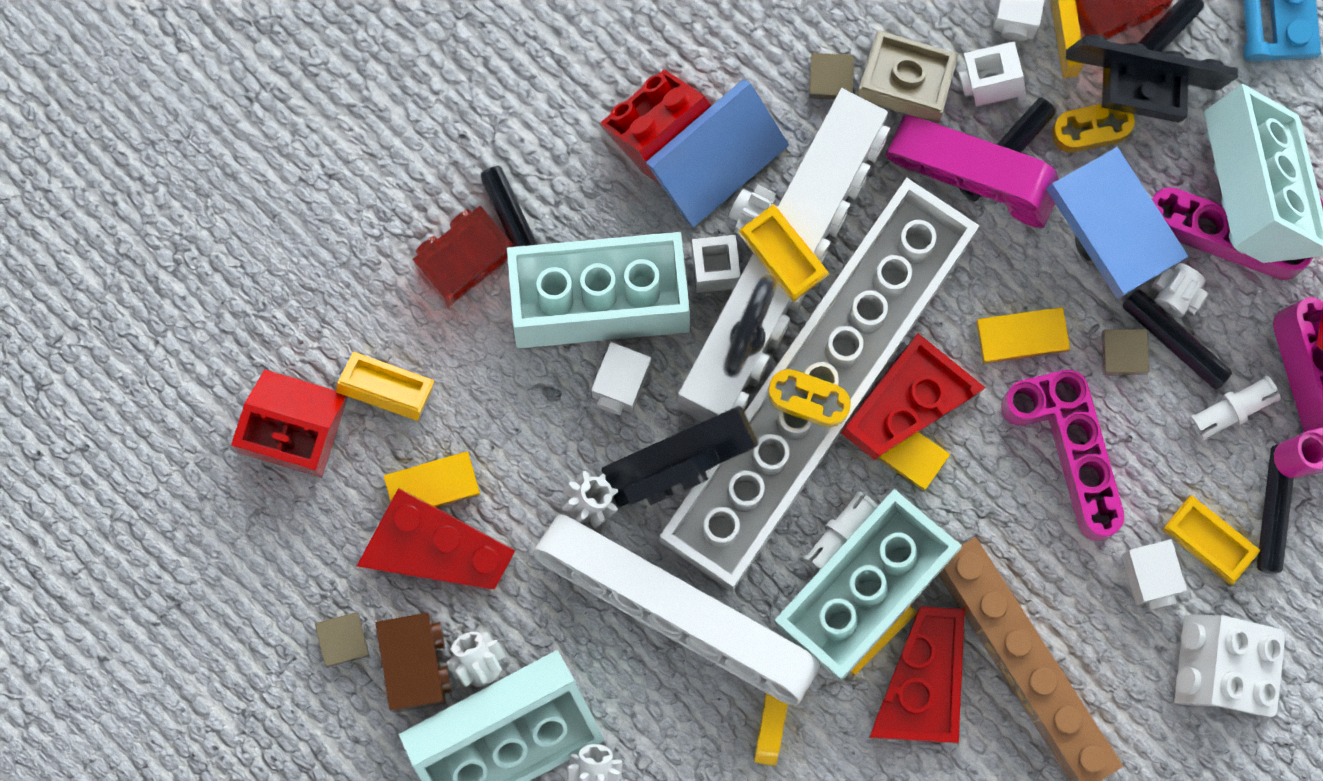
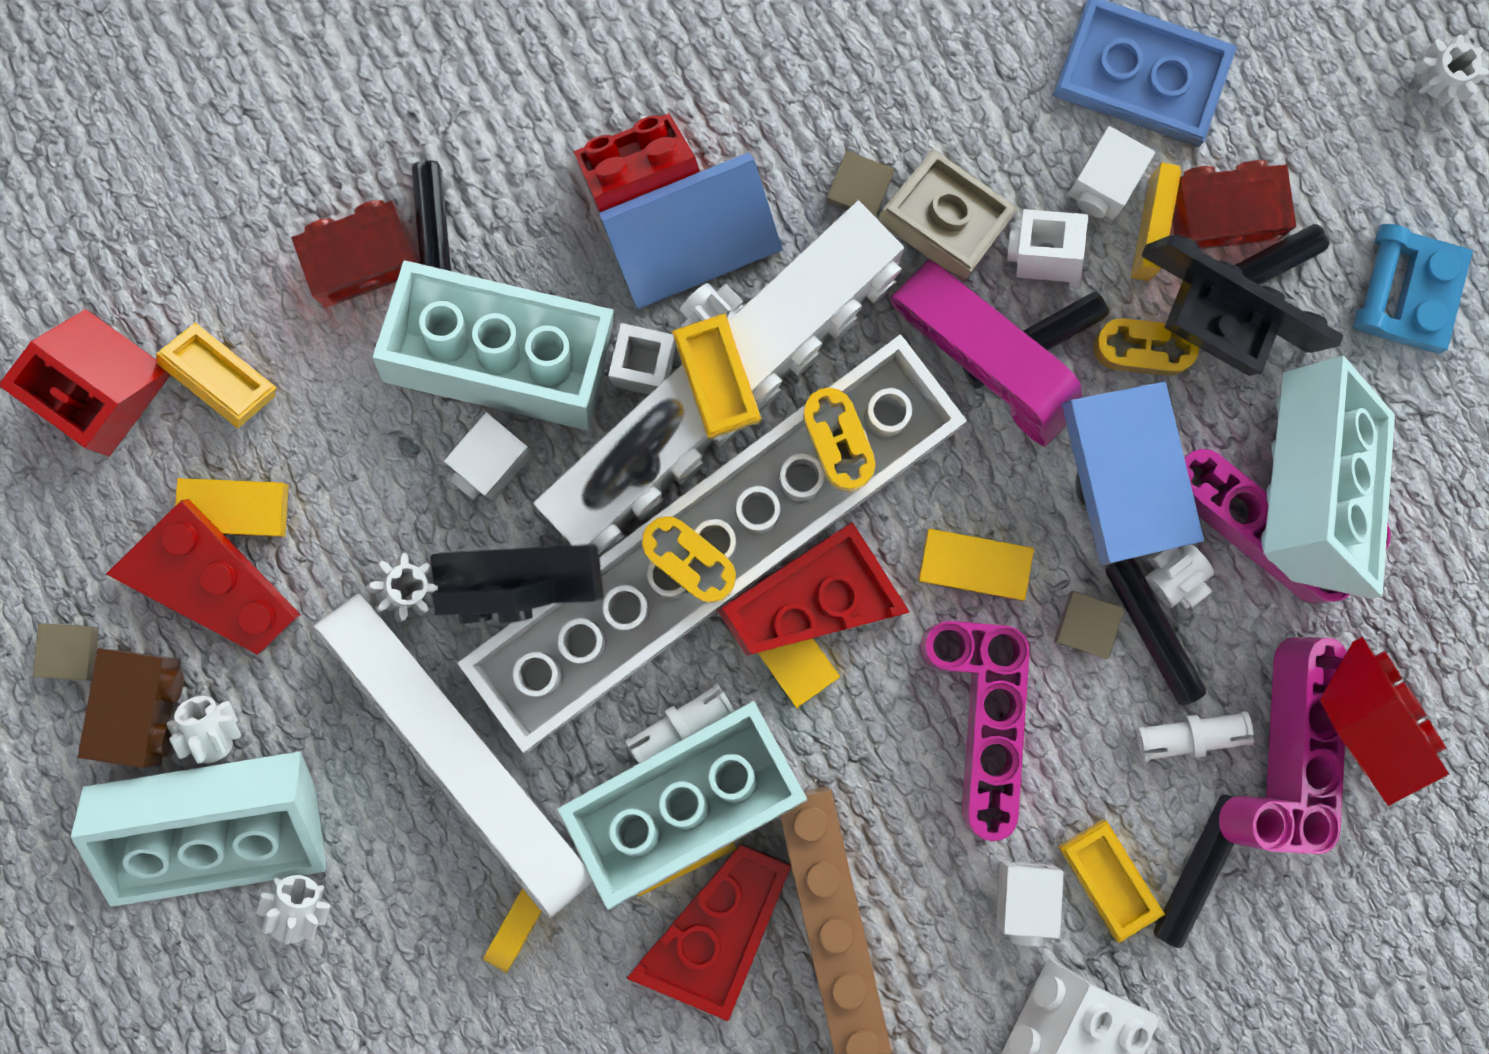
camera: 20 degrees right, 5 degrees up
(882, 278) = (851, 434): none -> yellow beam

